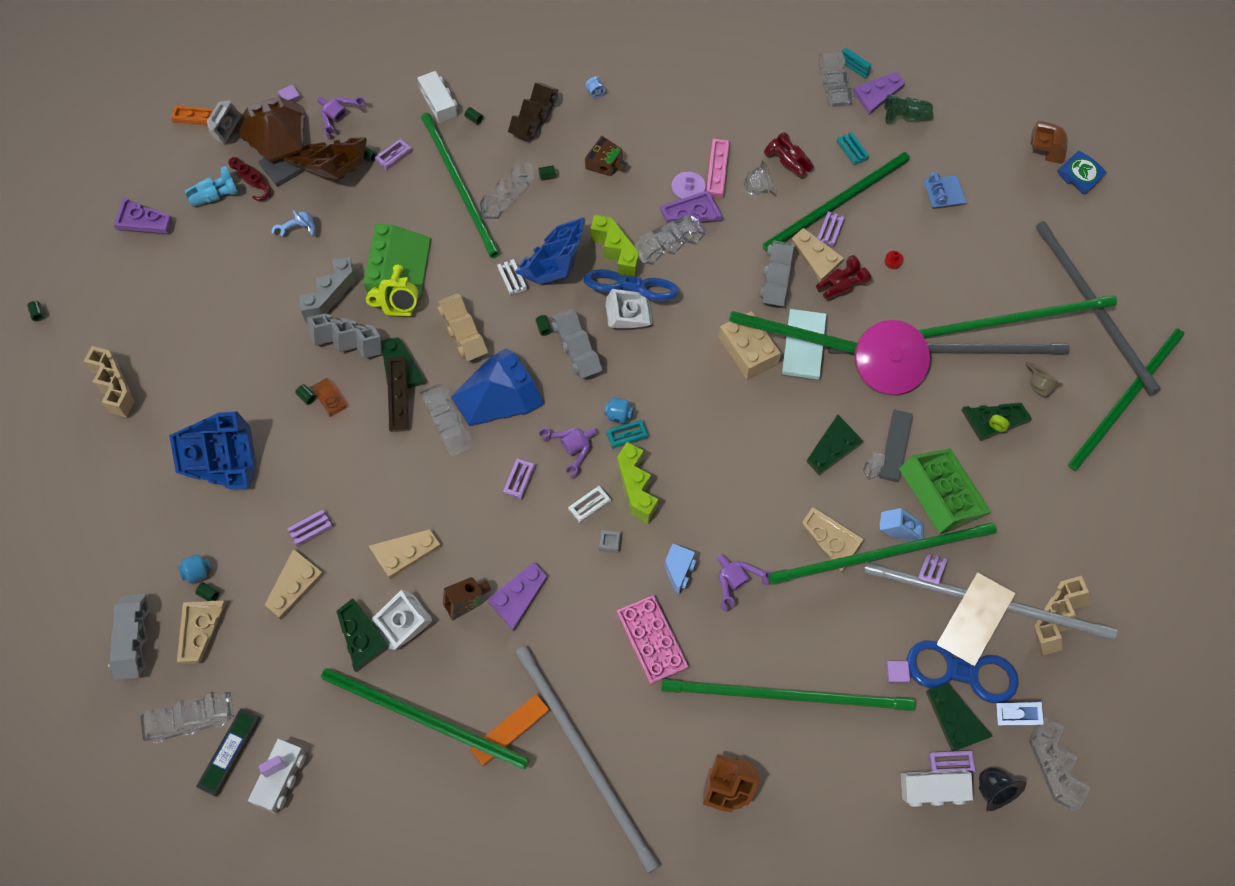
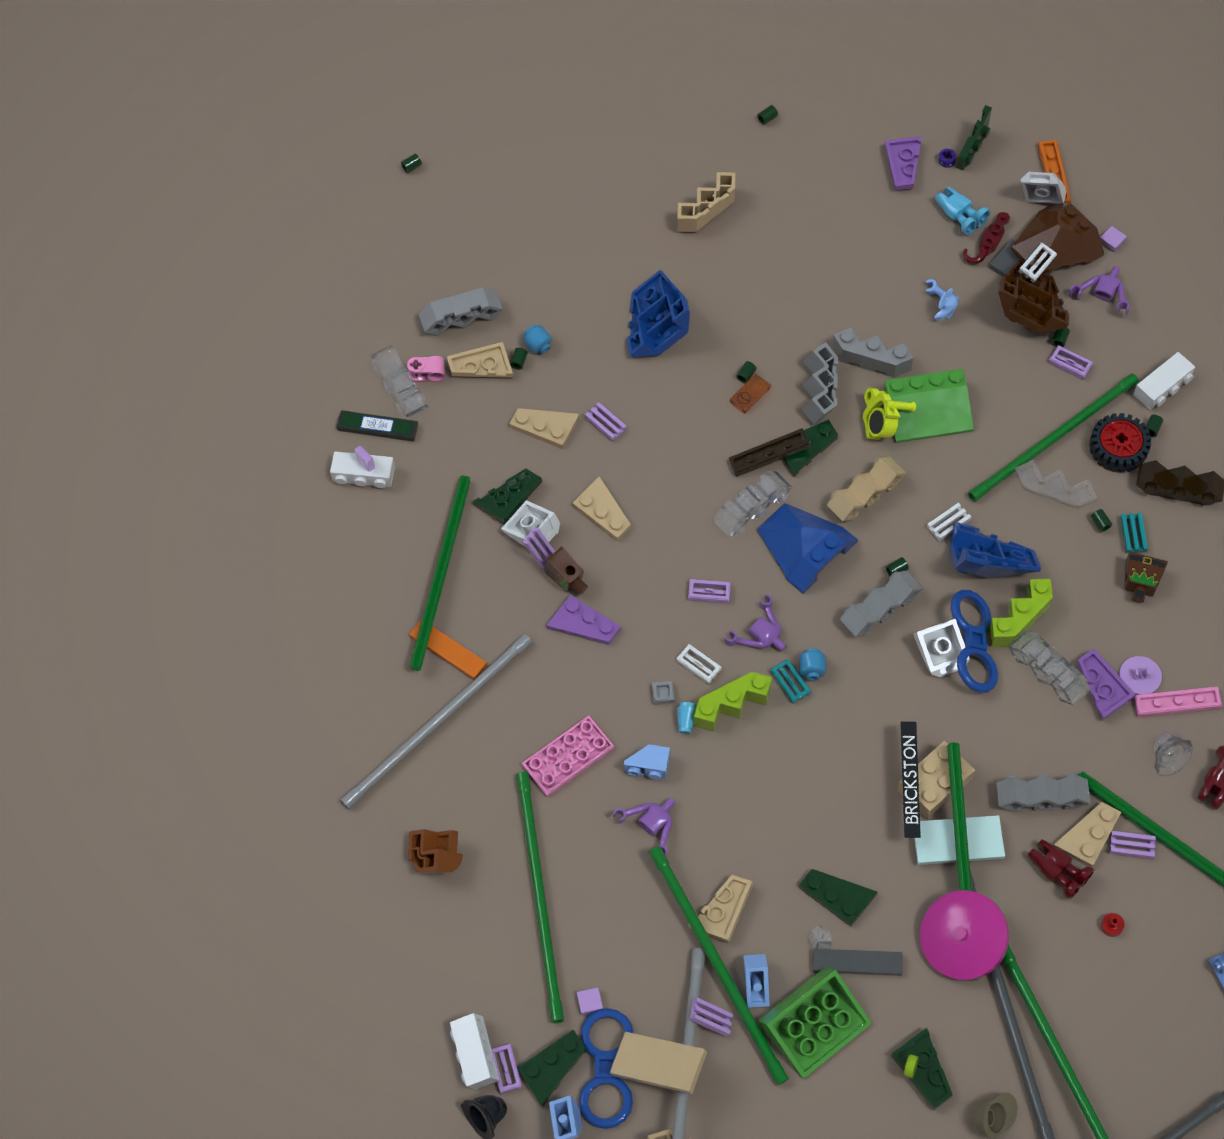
camera: 80 degrees right, 0 degrees up
(146, 158) = (974, 143): none -> dark green wing
(157, 189) = (949, 153): none -> dark purple bush
(183, 684) = (427, 368): none -> bright pink piece
(302, 151) = (1028, 273): none -> white tile
(432, 613) = (541, 545): none -> lavender tile
(482, 140) = (1120, 442): none -> wheel
(564, 152) = (1131, 517): none -> teal tile
(640, 525) = (686, 717): none -> medium azure cone
(751, 358) = (910, 780): none -> black sticker

